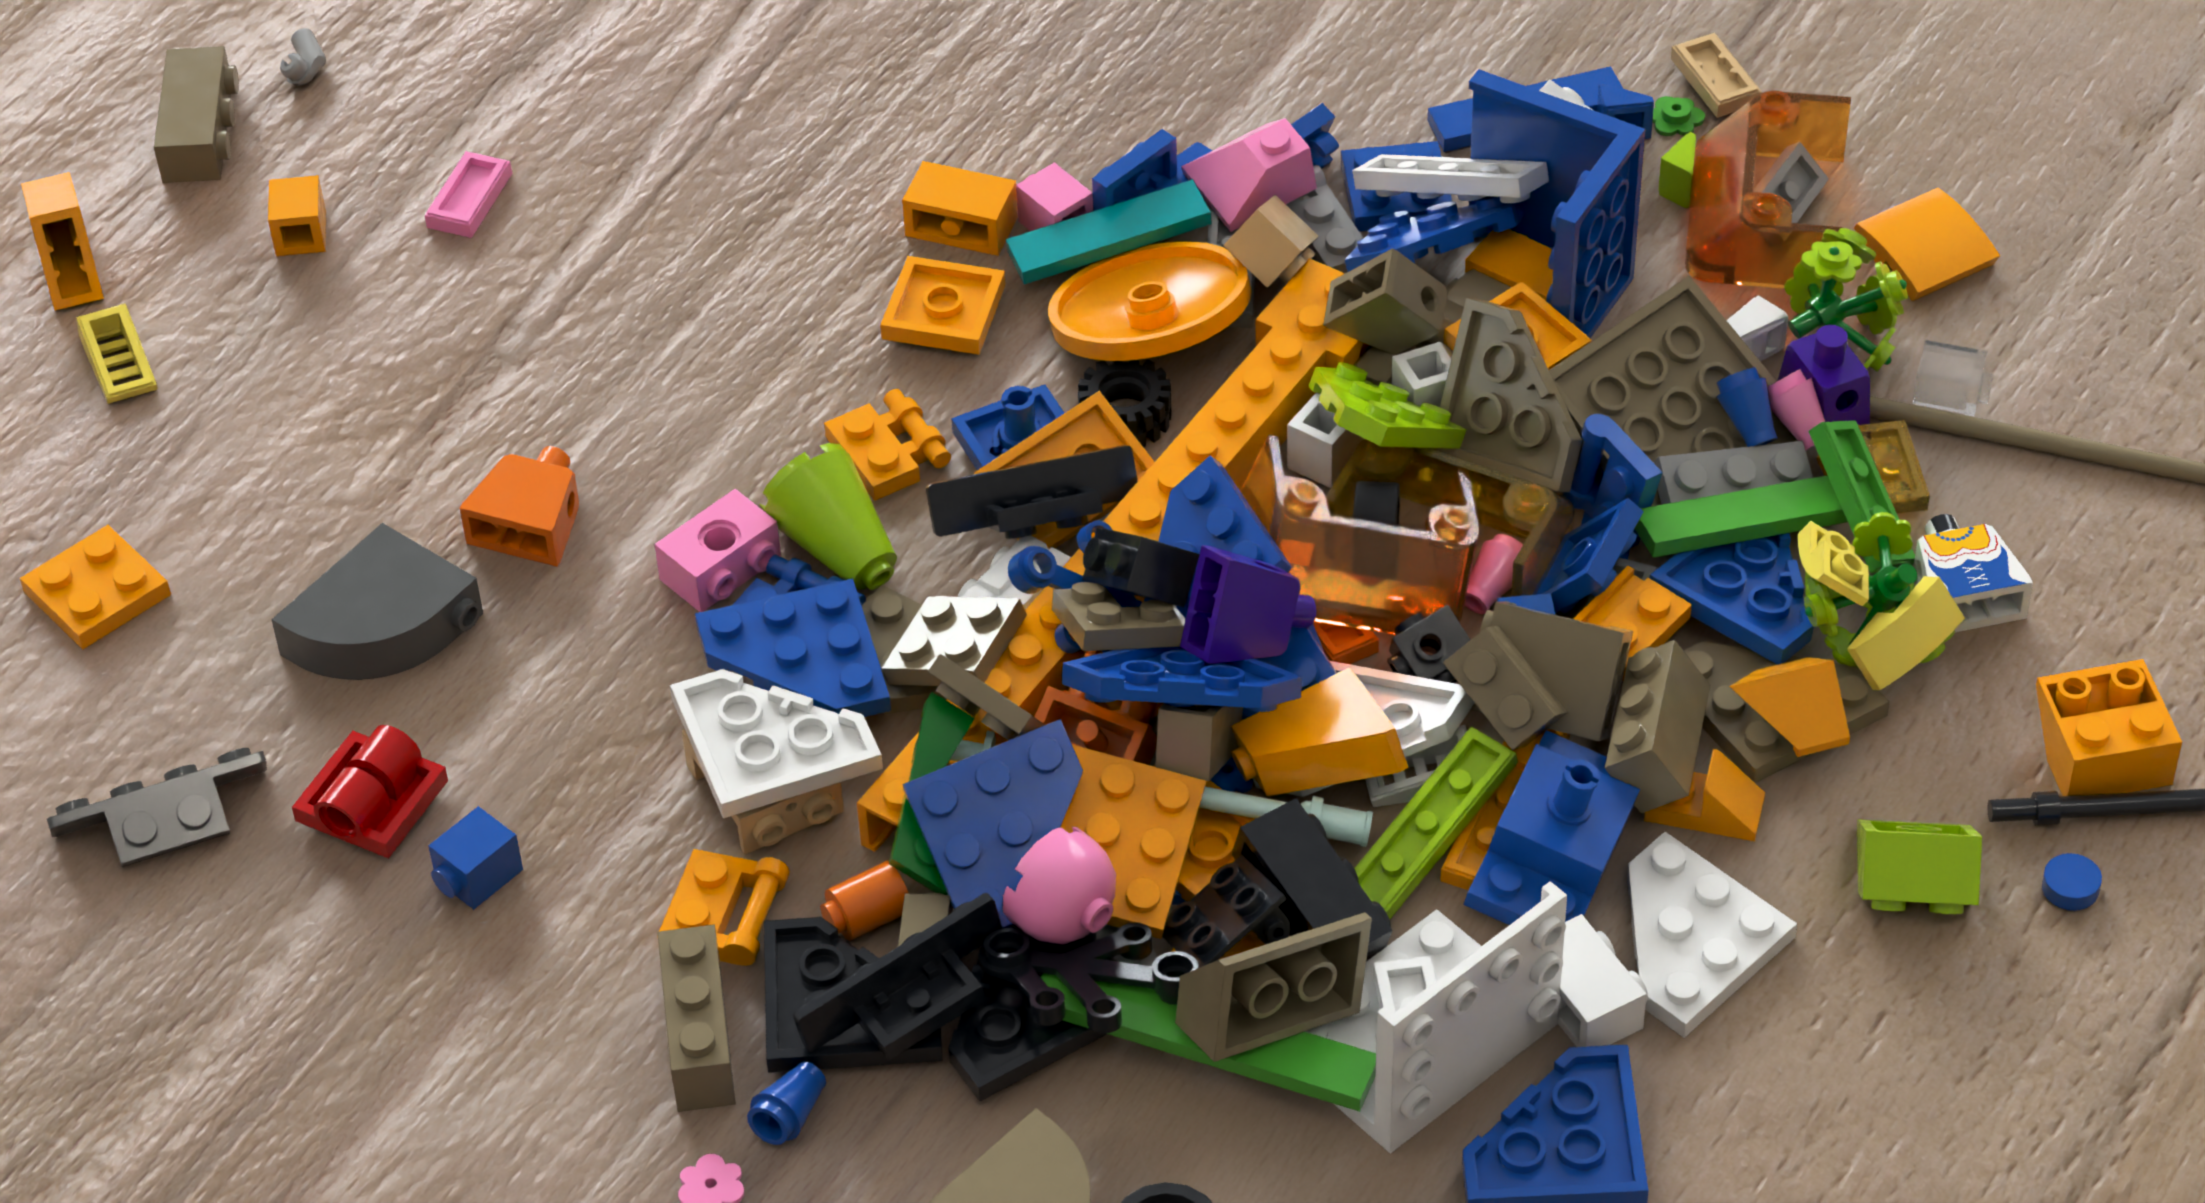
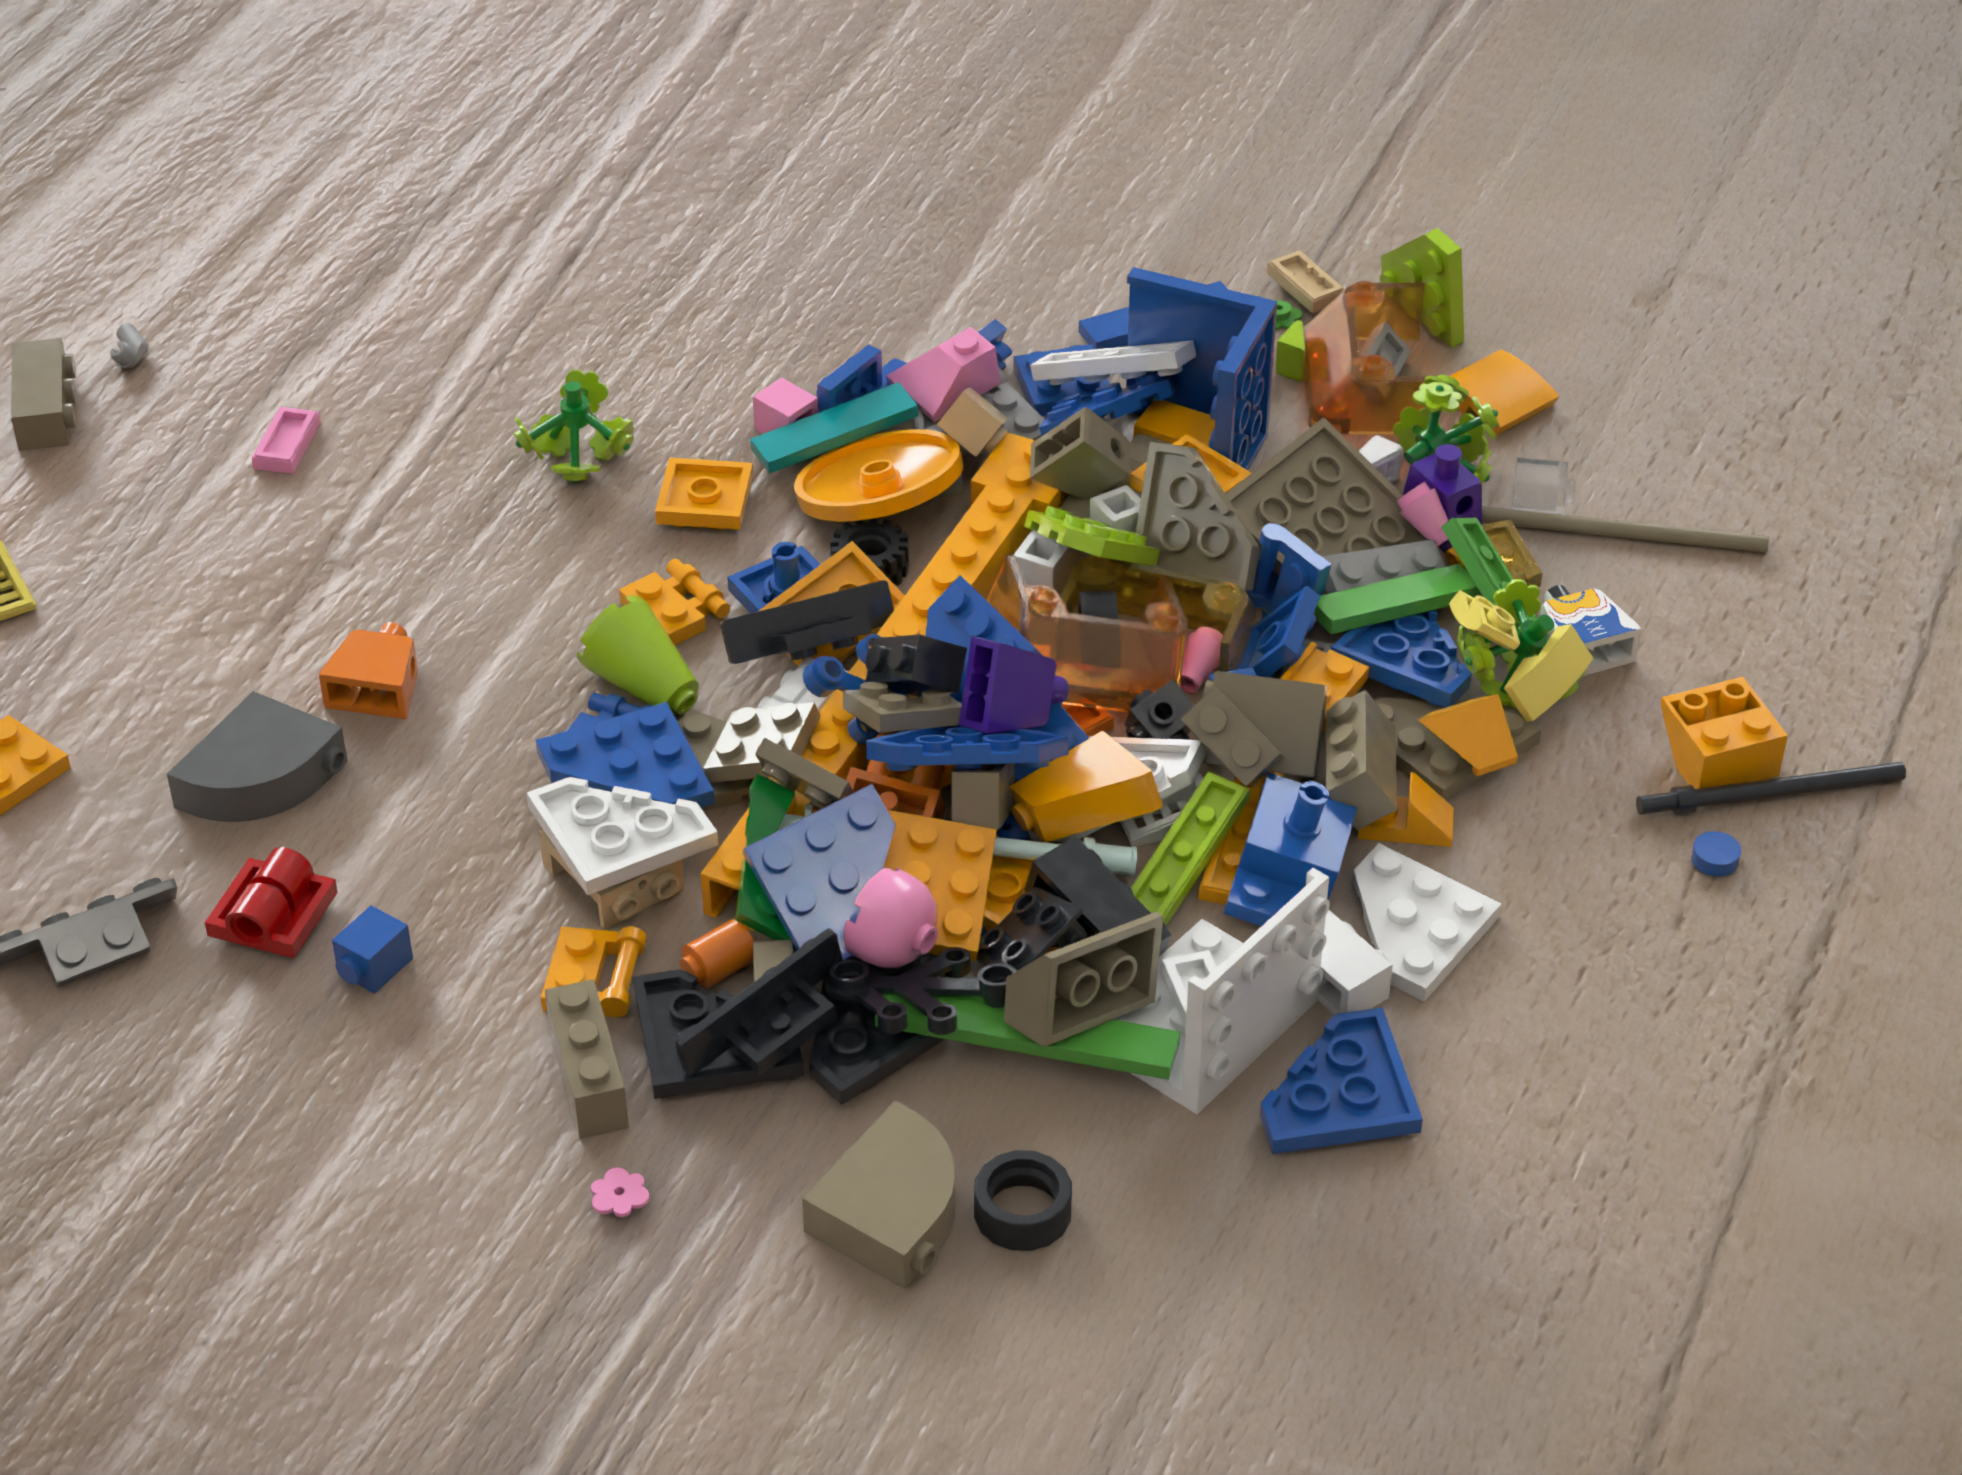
camera: 10 degrees left, 5 degrees down
(297, 215) = (141, 464): light orange brick -> none
(717, 550) = (544, 692): bright pink brick -> none
(784, 212) = (561, 432): none -> lime plant
(786, 1104) = (675, 1121): blue cone -> none
(960, 208) = (706, 419): light orange brick -> none
(1748, 406) = (1386, 513): blue cone -> none
(1867, 75) = (1437, 264): none -> lime plate
(1918, 864) = (1592, 849): lime slope -> none

